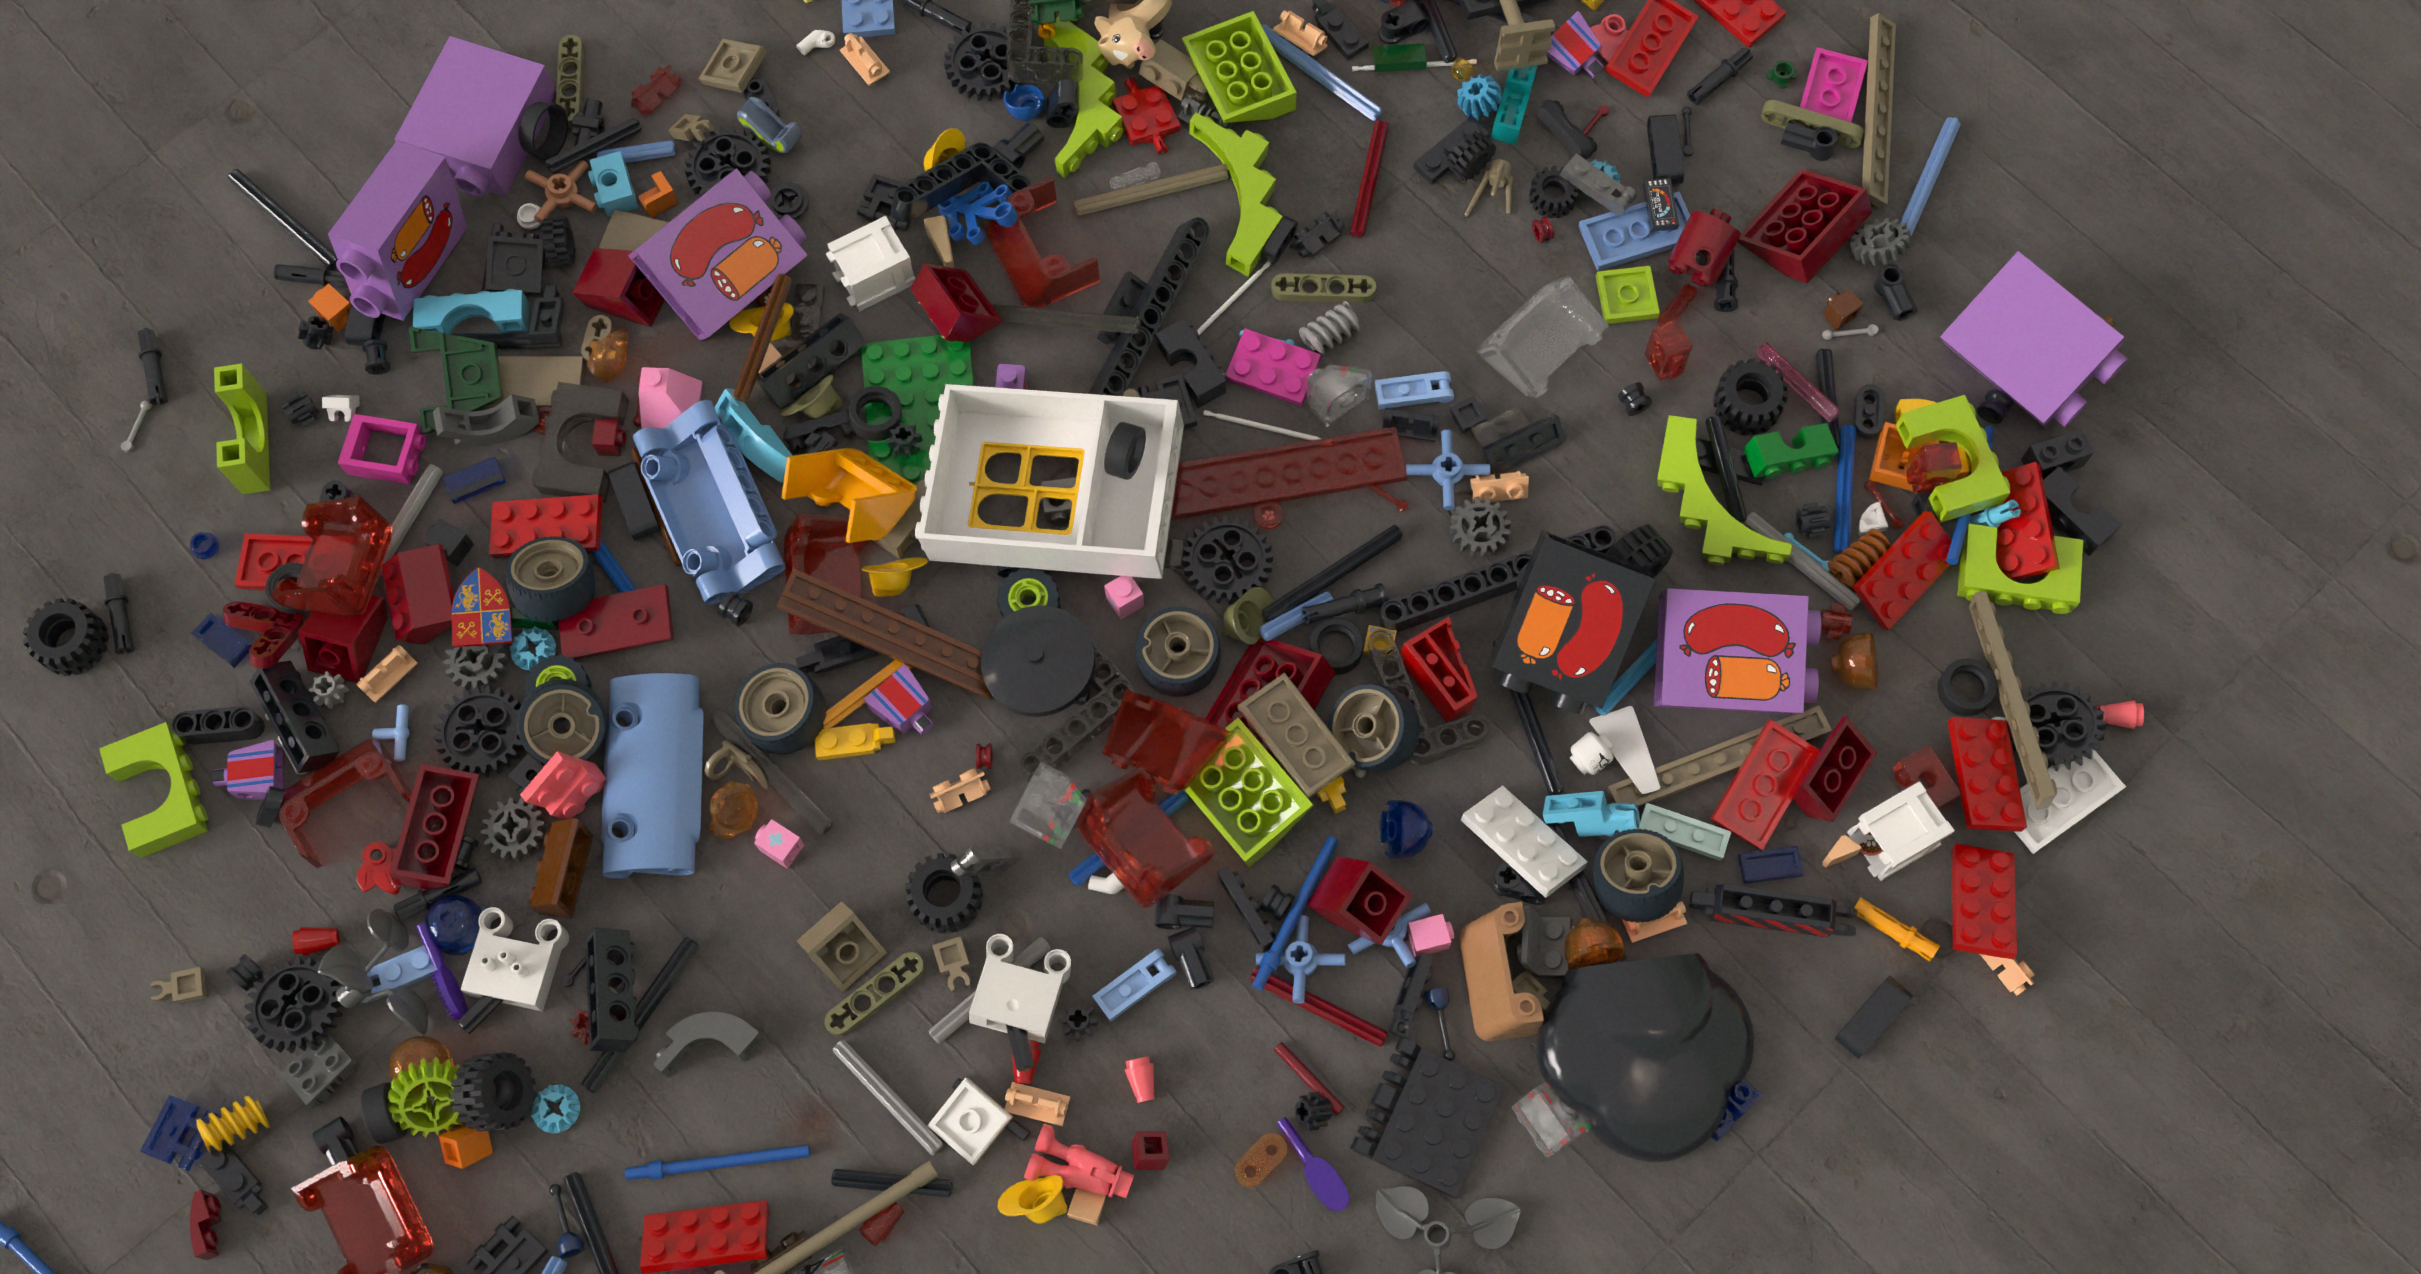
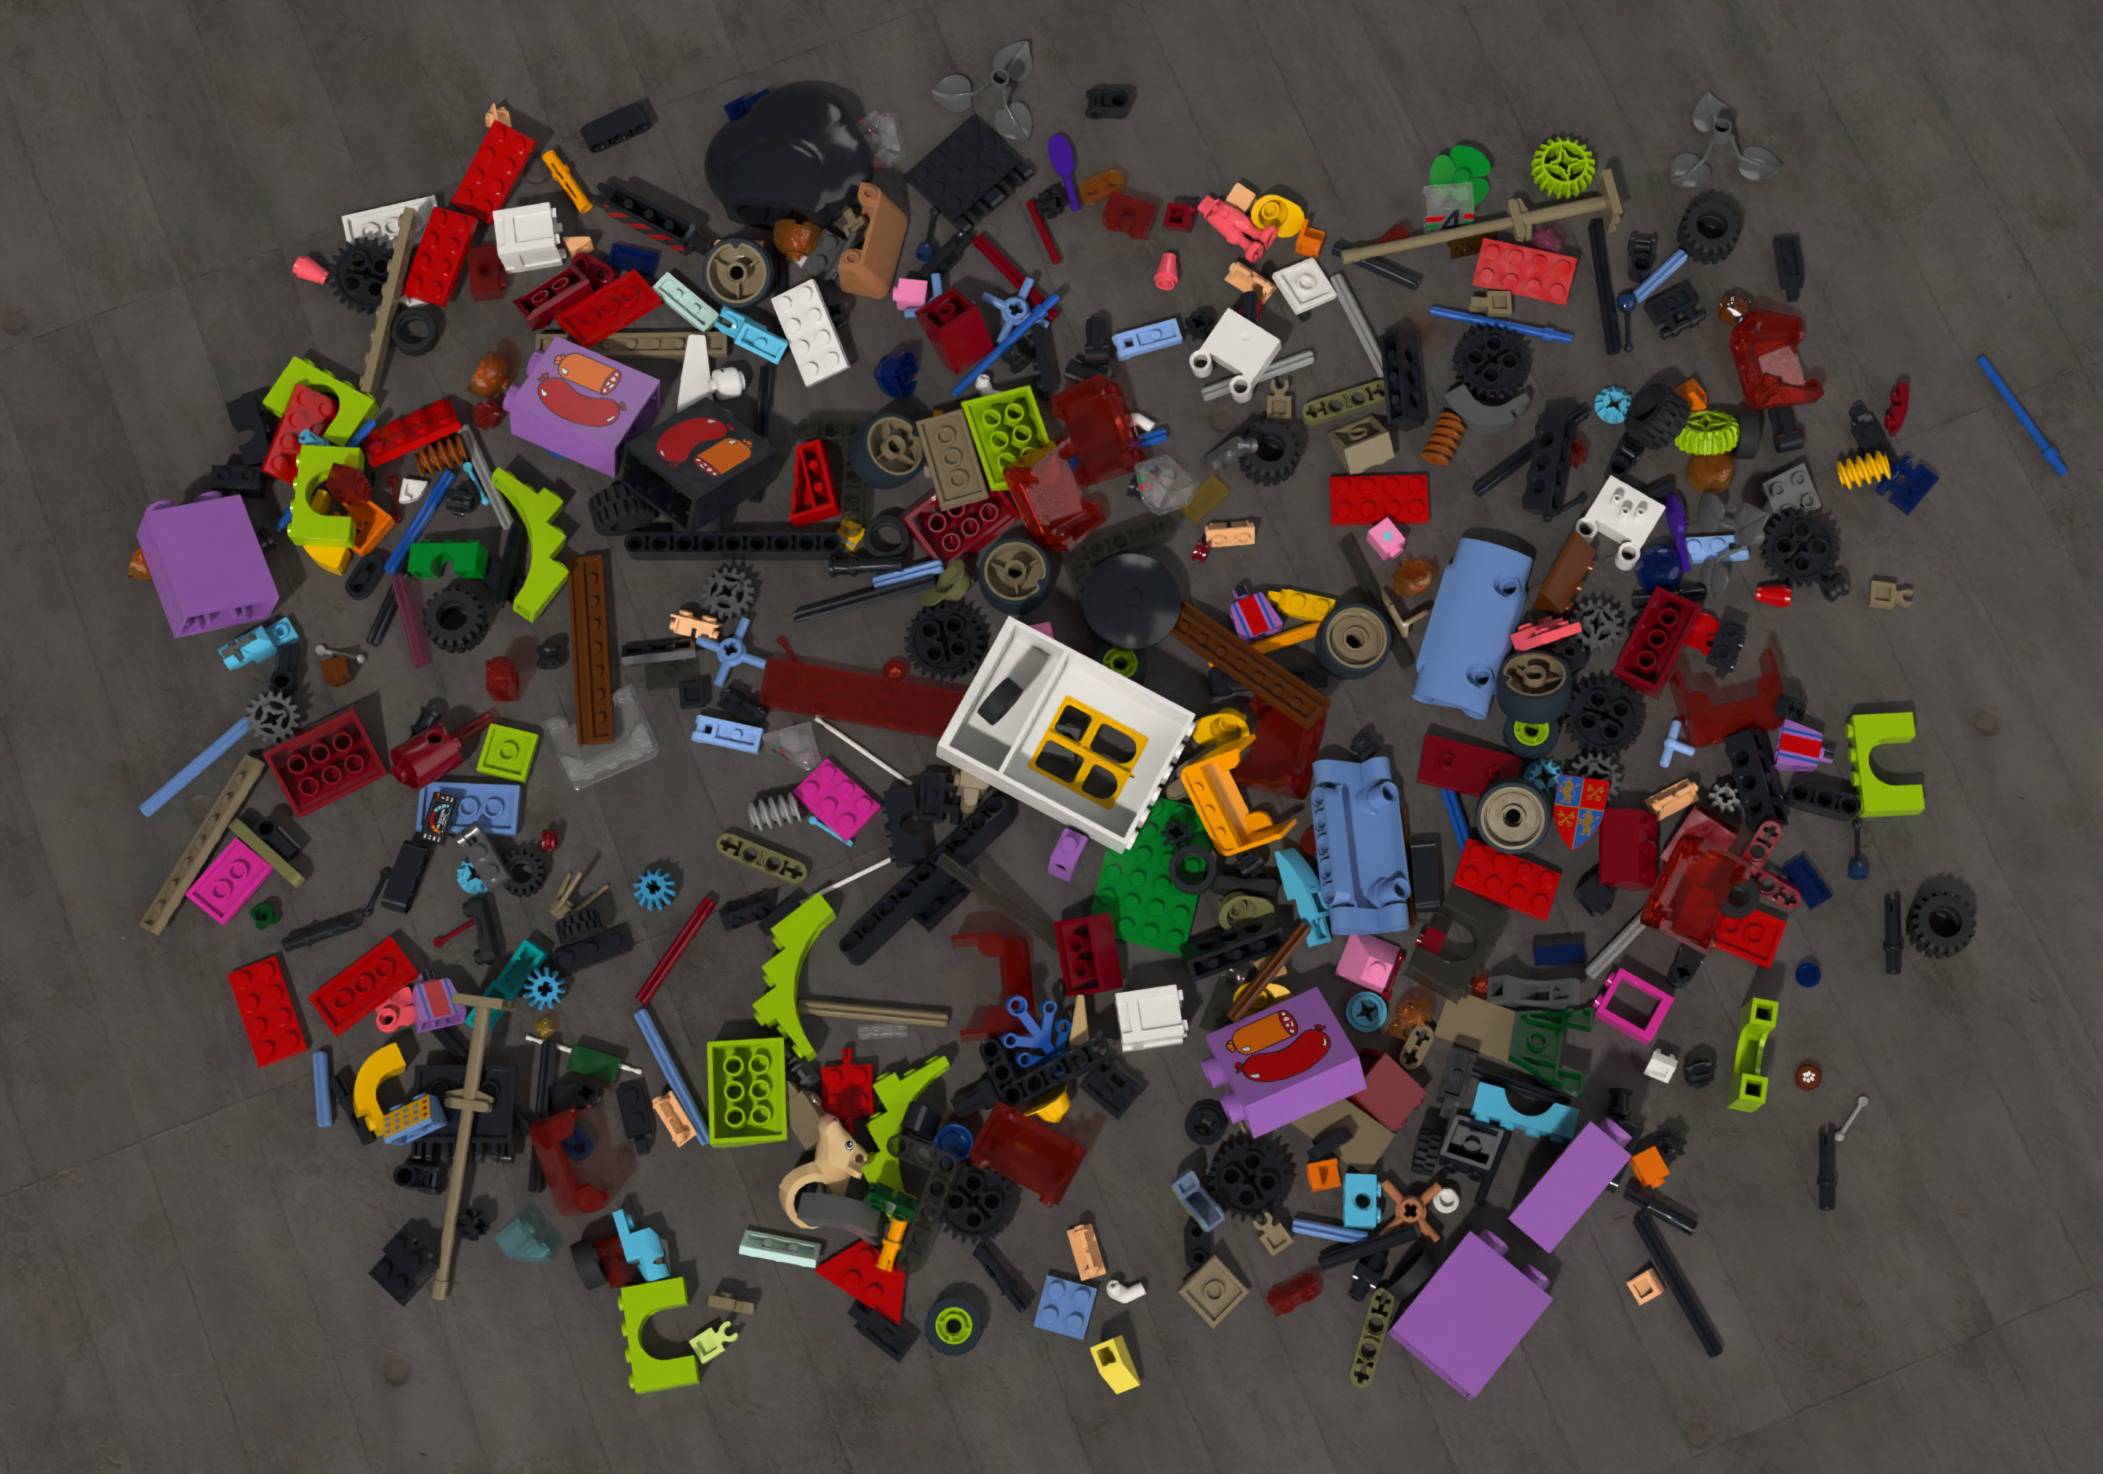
camera: 160 degrees left, 5 degrees up
(168, 669) = (1857, 869): none -> hinge
(187, 447) = (1807, 1077): none -> tile
(314, 210) = (1646, 1286): none -> light nougat slope
(356, 851) = (1724, 647): none -> black bracket
(527, 1040) = (1624, 458): none -> black piece
(655, 216) = (1330, 1144): none -> black beam
(658, 344) = (1371, 1001): none -> medium azure gear
(693, 1089) = (1505, 378): none -> black gear
(730, 1182) = (1495, 303): none -> dark tan plate
(743, 982) = (1443, 440): none -> dark orange piece
(768, 495) = (1308, 843): none -> clear red plate
(801, 891) = (1374, 498): none -> red plate
(814, 1037) = (1402, 380): none -> black brick
(925, 109) = (1028, 1153): none -> clear red windscreen
(982, 1185) = (1309, 241): none -> orange panel
(997, 828) = (1205, 500): none -> clear yellow tile
(1227, 1142) = (1122, 205): none -> clear red brick
(1295, 855) = (984, 387): none -> white arm
(1416, 220) = (650, 881): none -> dark azure gear
(1596, 422) = (591, 651): none -> reddish brown plate
(1807, 832) = (593, 268): none -> dark red plate
(1937, 305) = (258, 644): none -> medium azure plate

